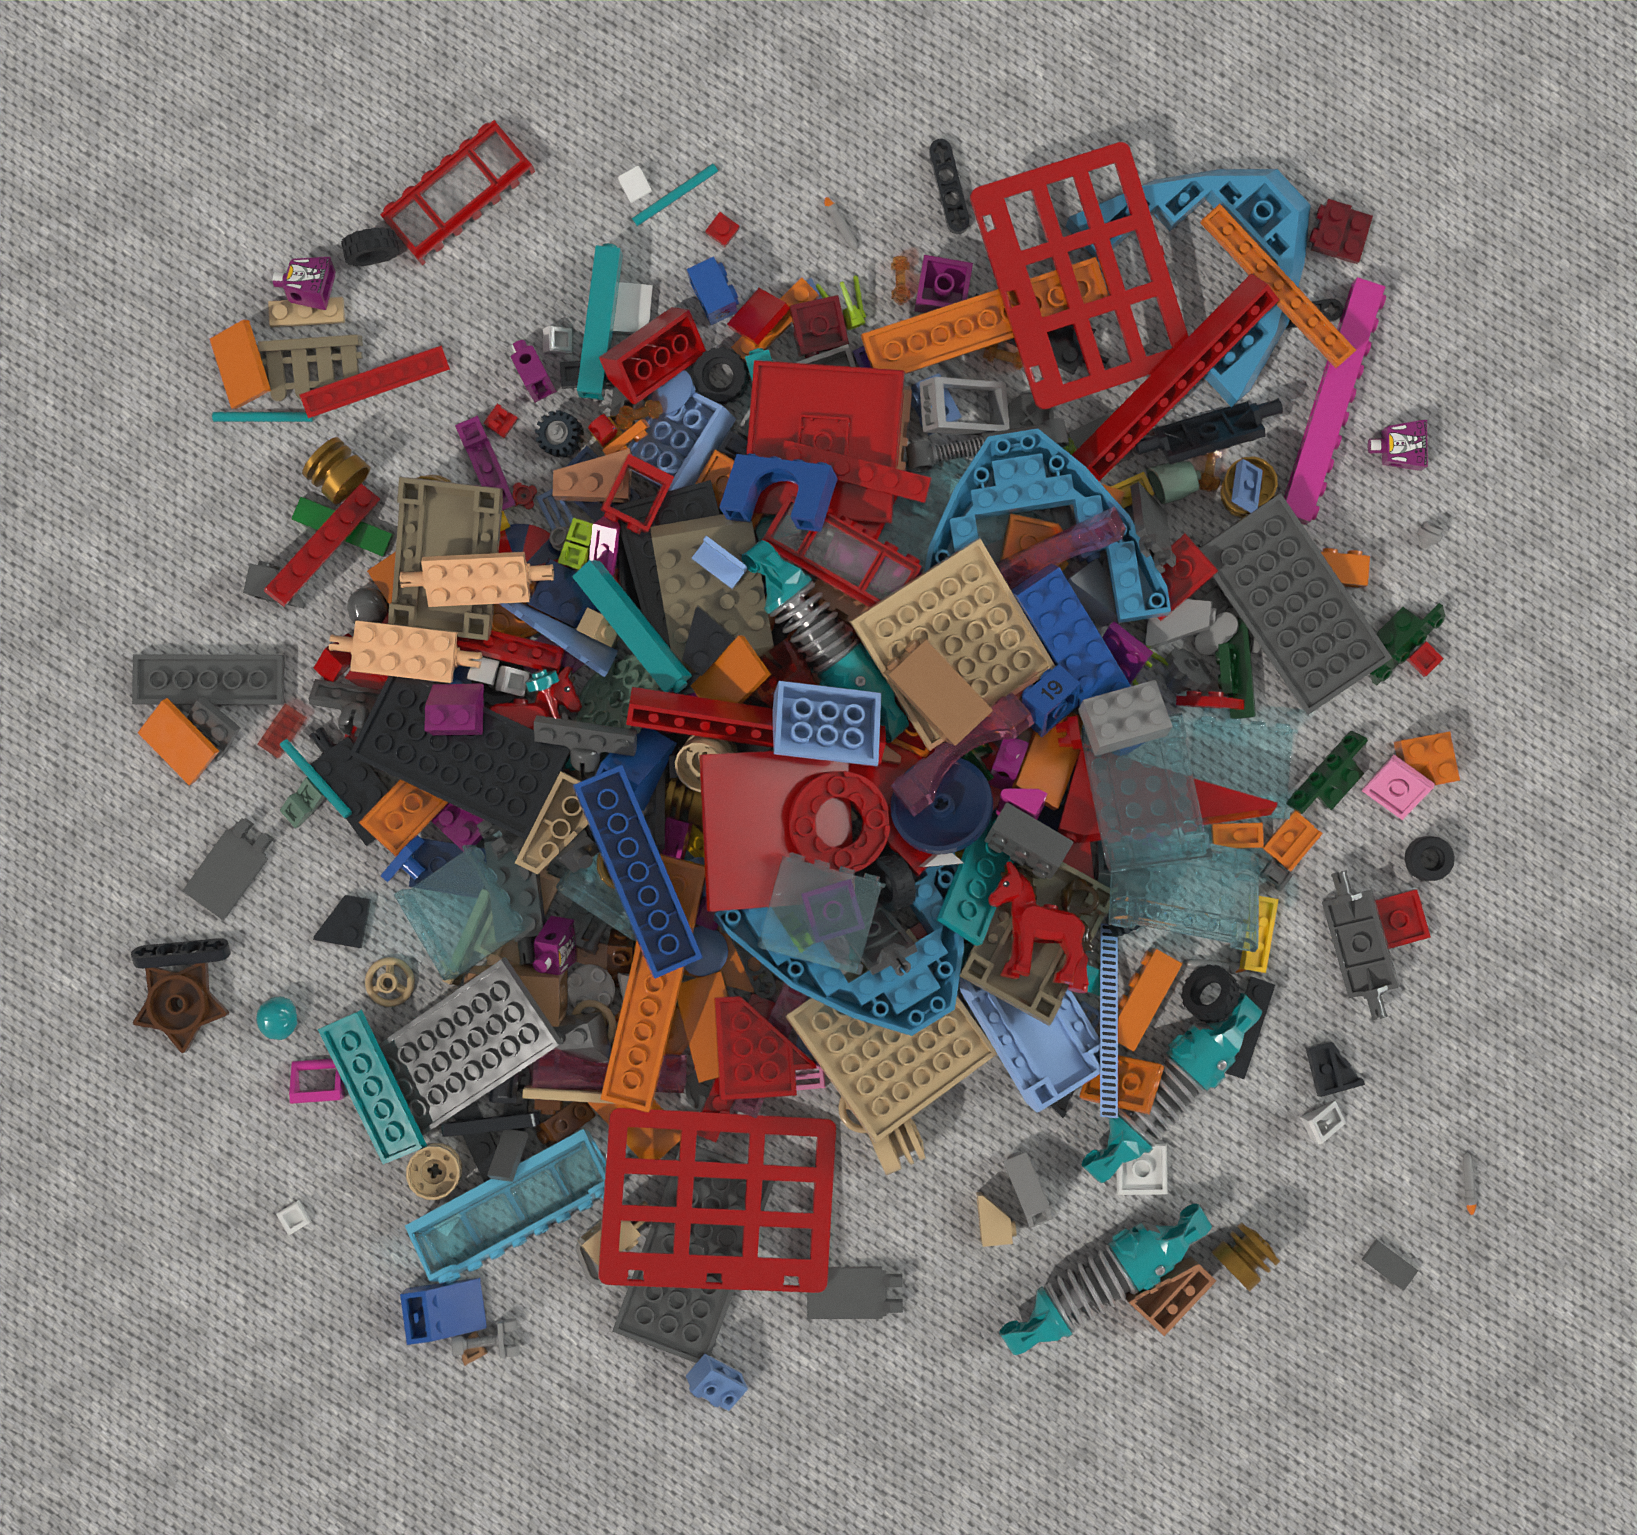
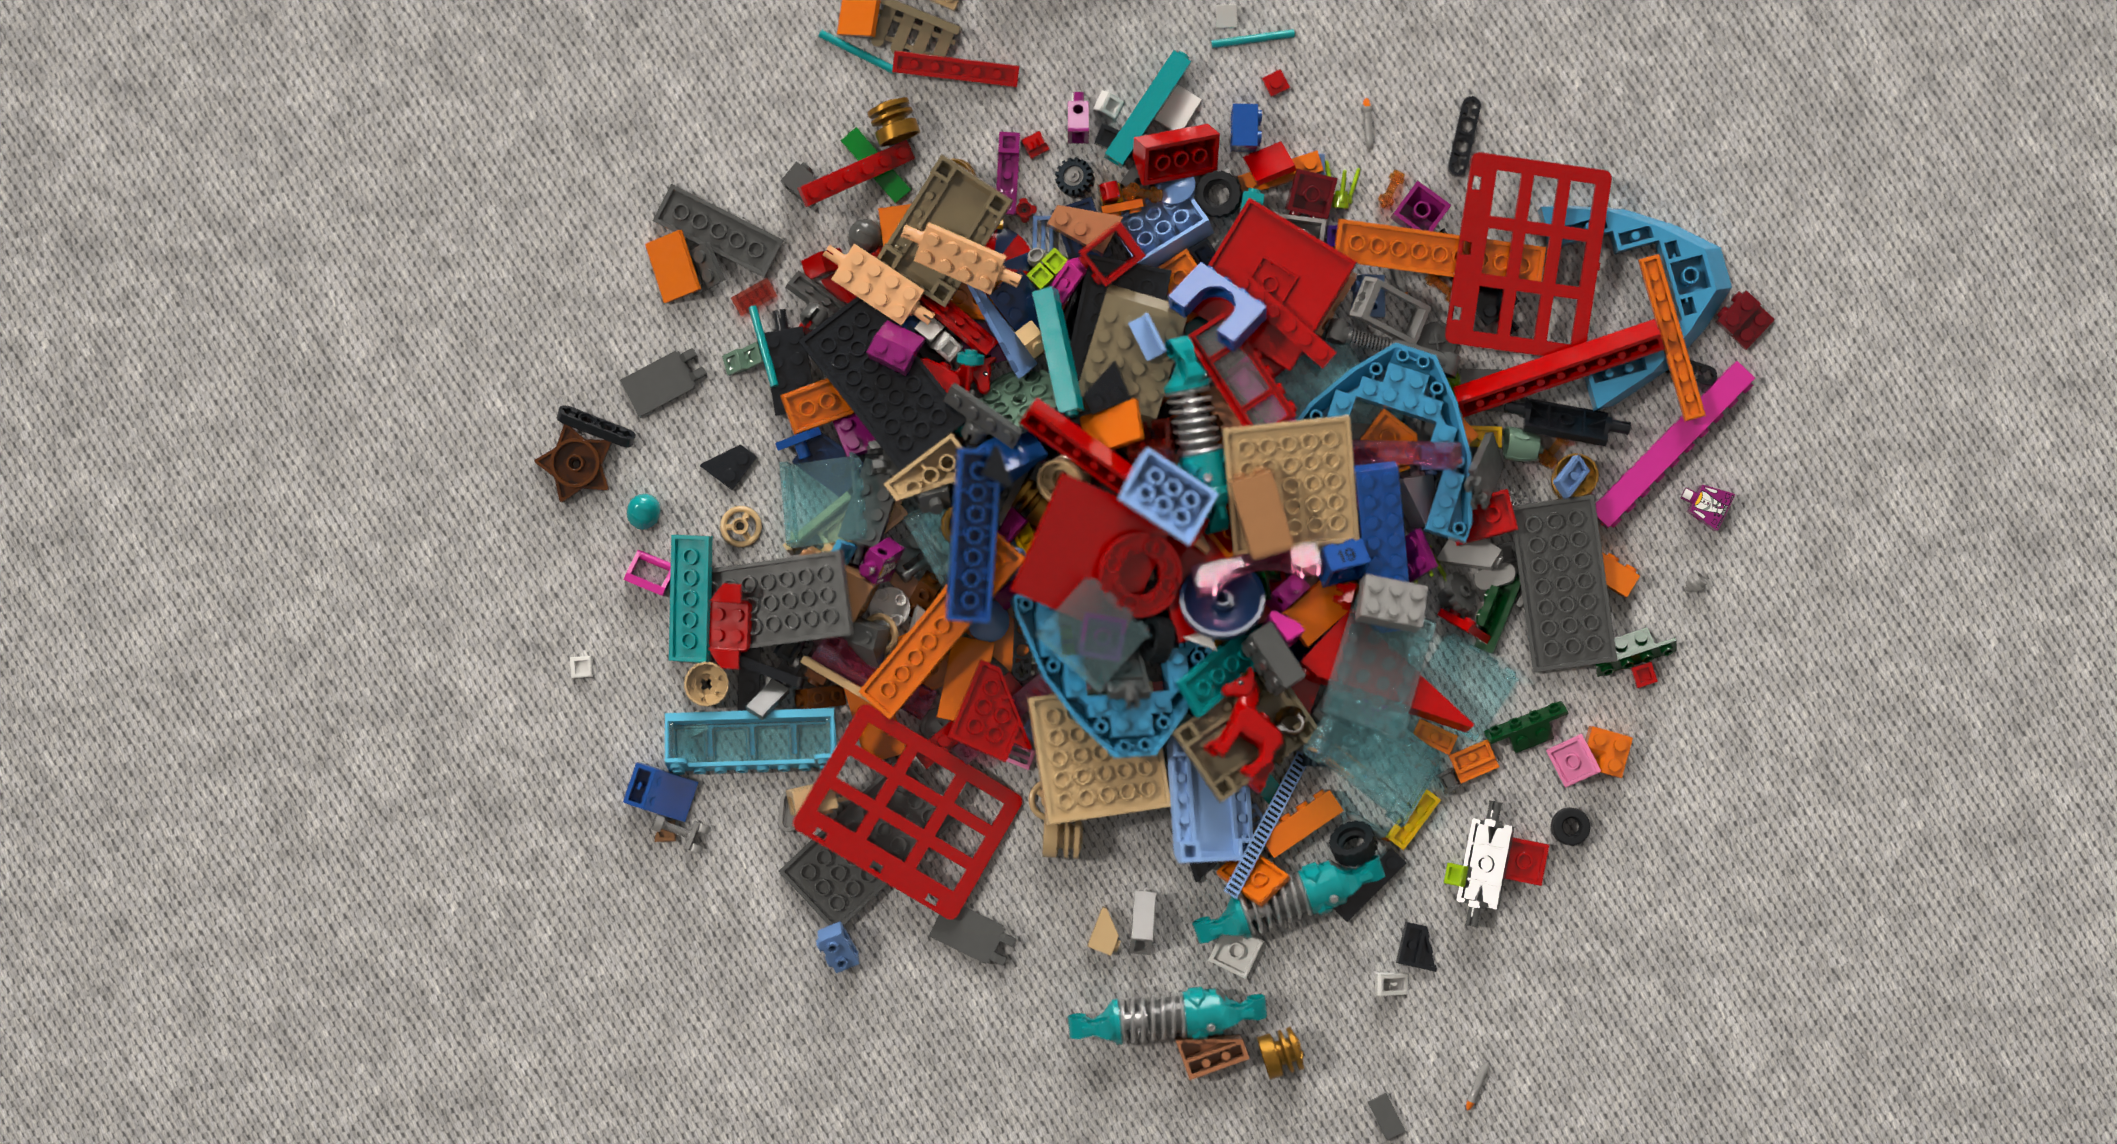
camera: 25 degrees right, 0 degrees up
(427, 1097) = (729, 625): none -> red piece
(512, 952) = (848, 548): none -> dark azure plate
(624, 787) = (995, 468): none -> black slope
(1334, 971) = (1456, 874): none -> lime tile

